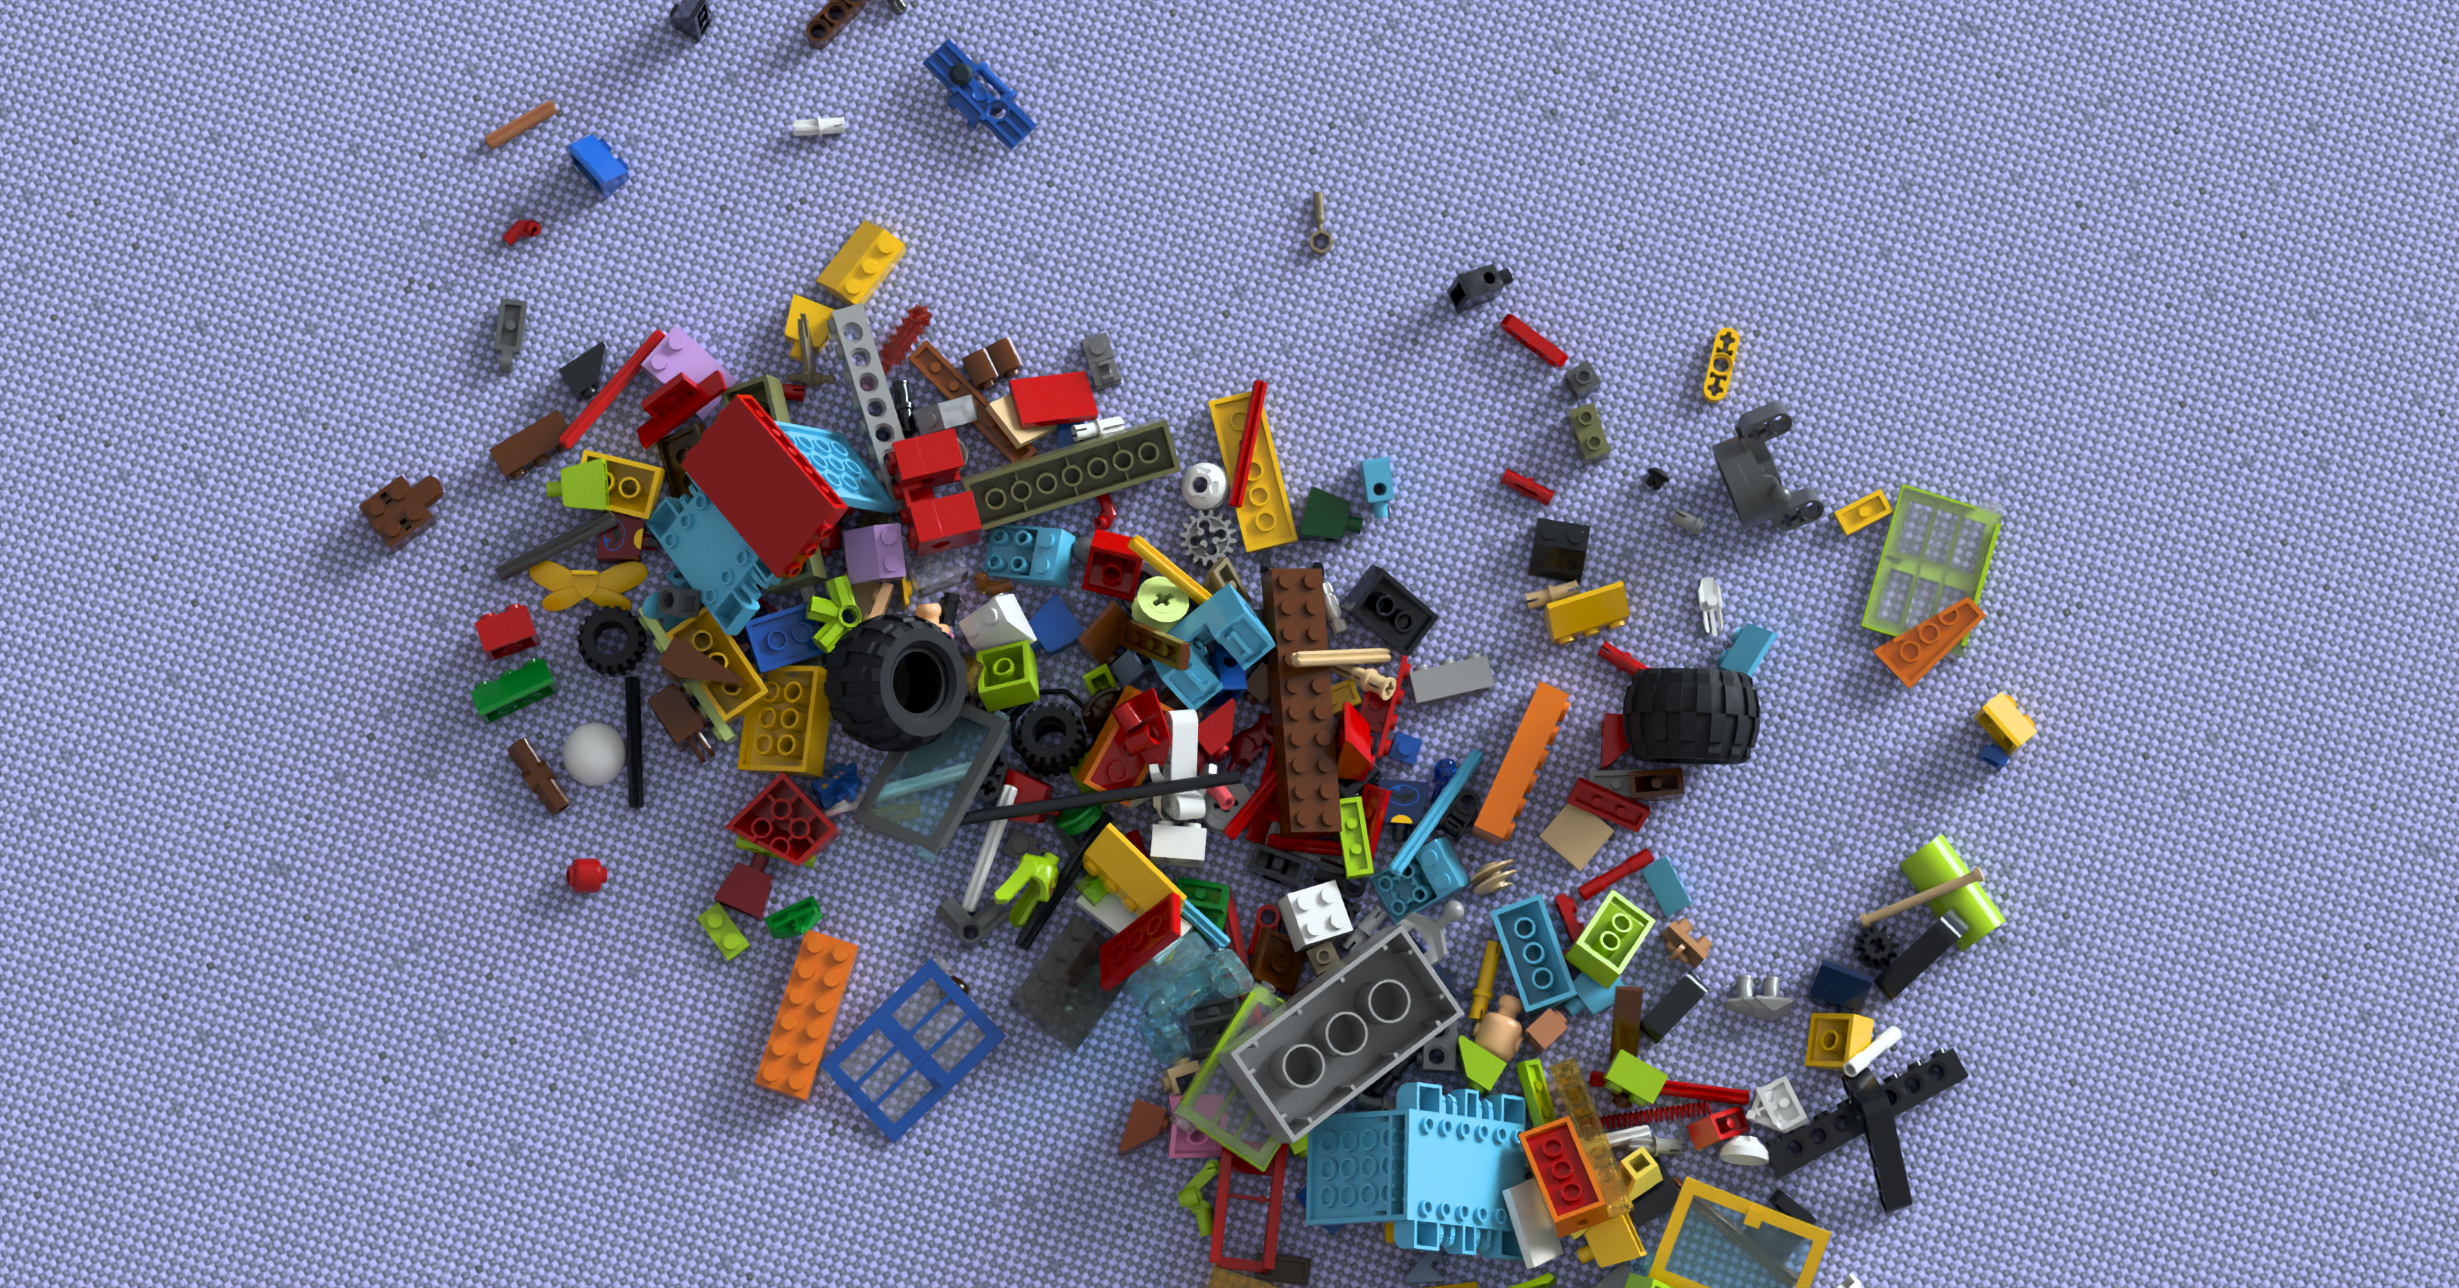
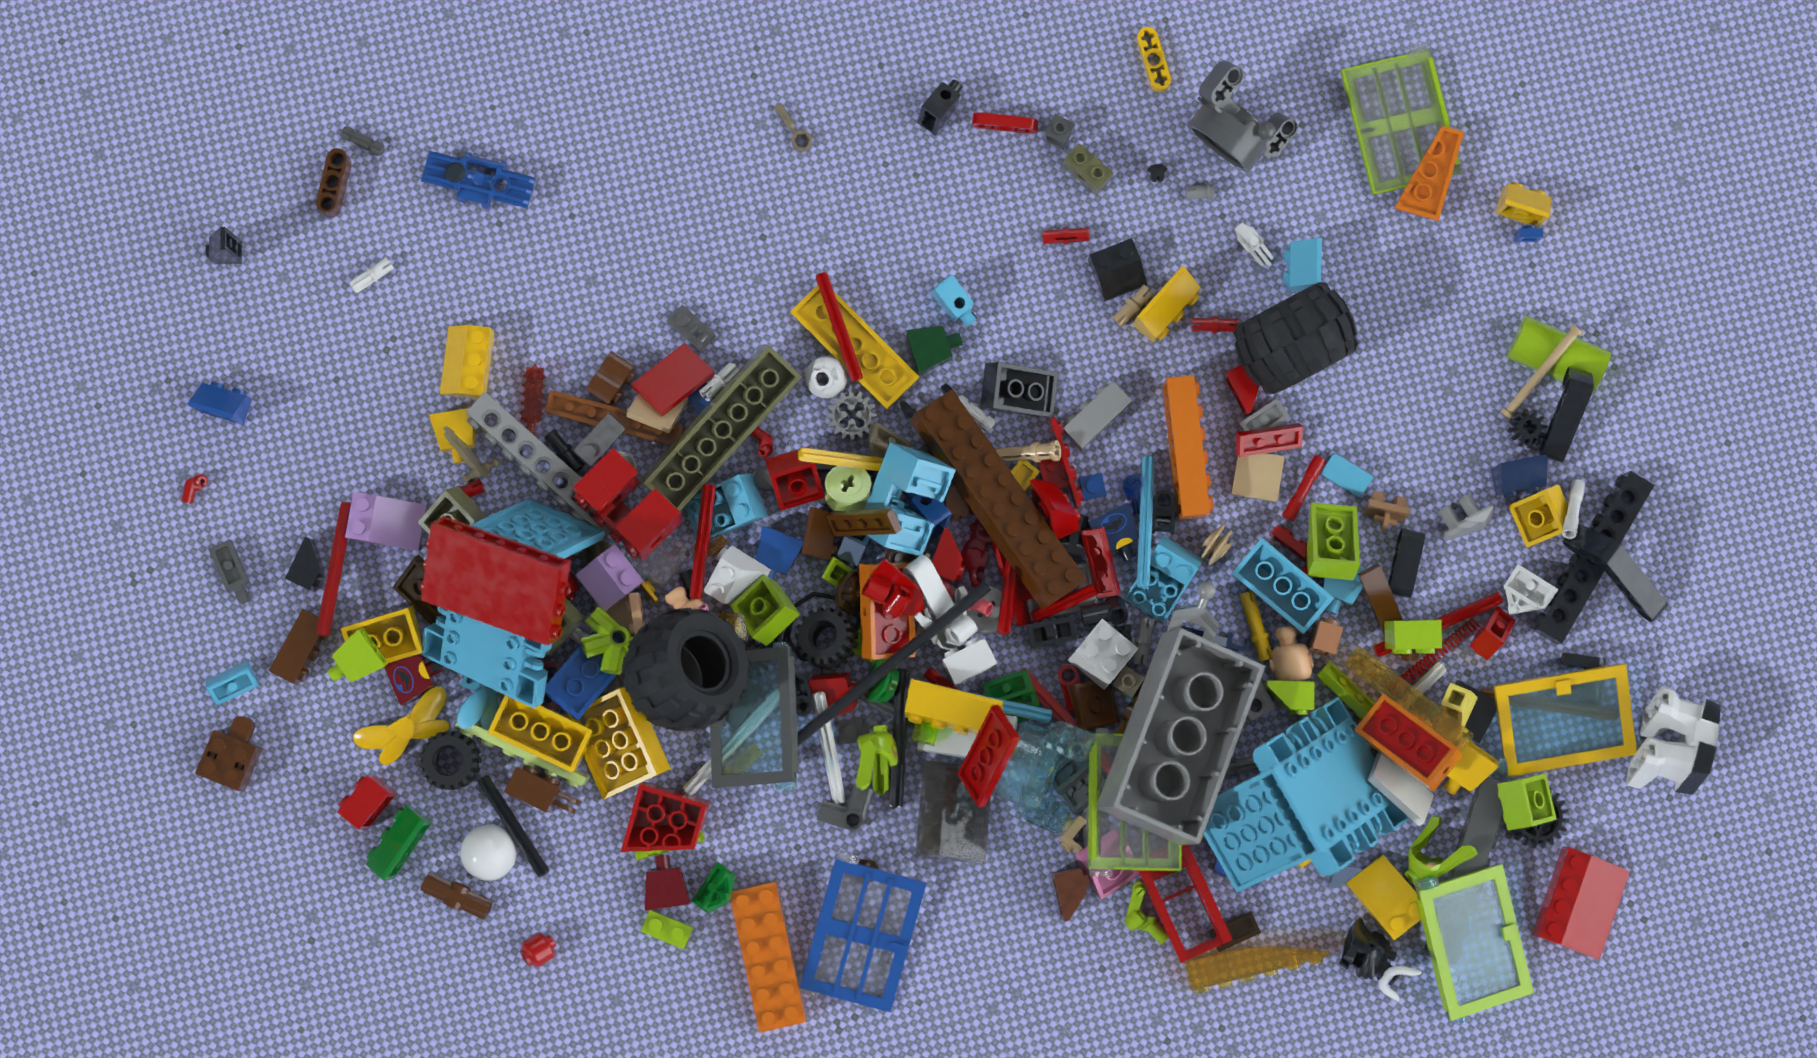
camera: 25 degrees left, 5 degrees up
(444, 442) = (231, 683): none -> medium azure slope
(520, 124) = (143, 406): nougat axle -> none
(556, 545) = (364, 713): dark grey axle -> none
(676, 403) = (390, 551): red bracket -> none
(679, 601) = (483, 702): dark grey brick -> none
(694, 667) = (518, 747): reddish brown slope -> none
(837, 788) = (689, 769): blue hips -> none
(986, 573) = (702, 541): none -> red axle
(1340, 657) = (1006, 448): tan axle -> none
(1355, 839) = (1099, 579): lime plate -> none
(1655, 1145) = (1454, 674): light grey axle -> none
(1657, 784) = (1296, 403): reddish brown slope -> none
(1744, 1151) = (1523, 639): white piece -> none
(1863, 512) = (1324, 108): yellow plate -> none

